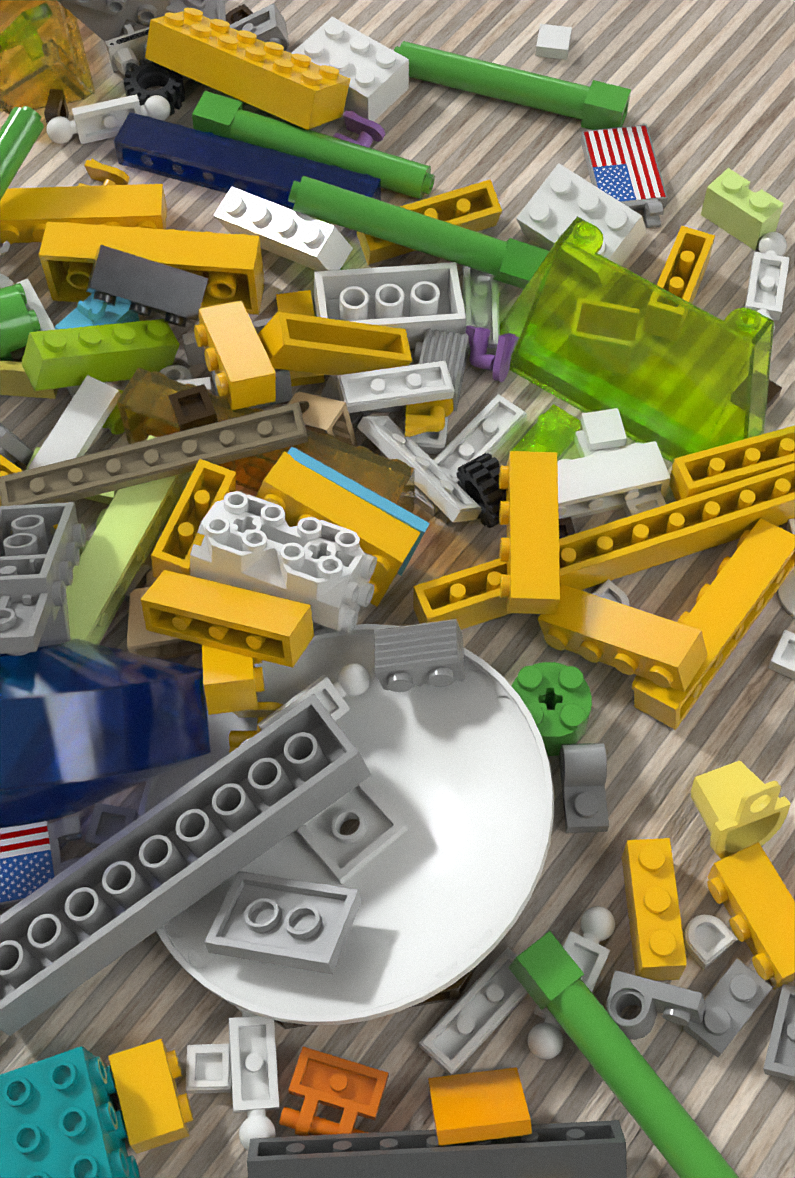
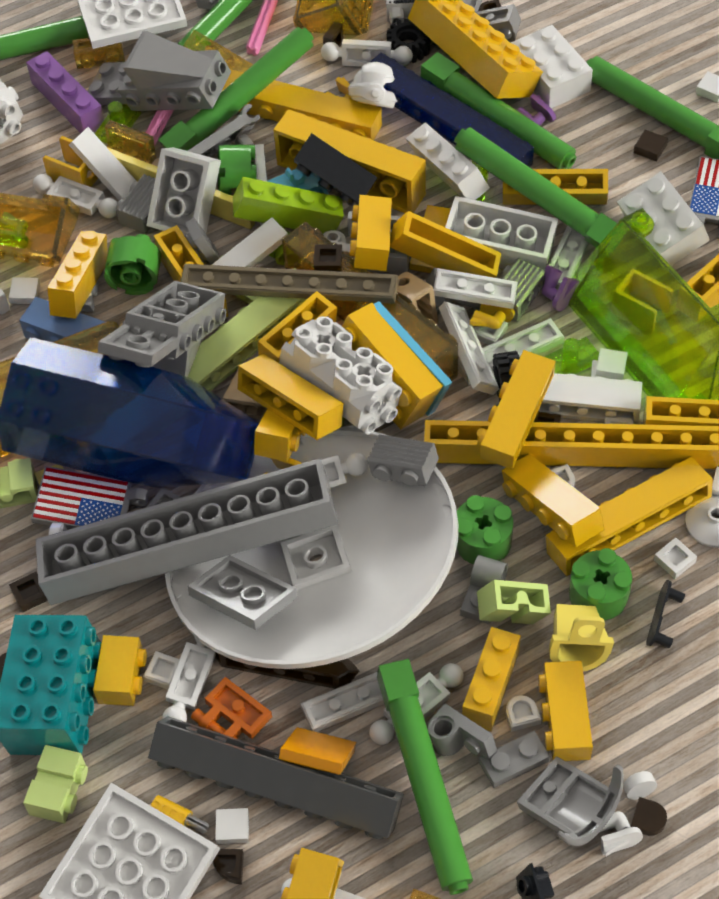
camera: 25 degrees right, 5 degrees down
(138, 158) = (369, 85): none -> white helmet
(514, 135) = (650, 145): none -> dark brown tile
(637, 794) = (519, 600): none -> yellowish green brick
(731, 707) = (601, 581): none -> bright green brick

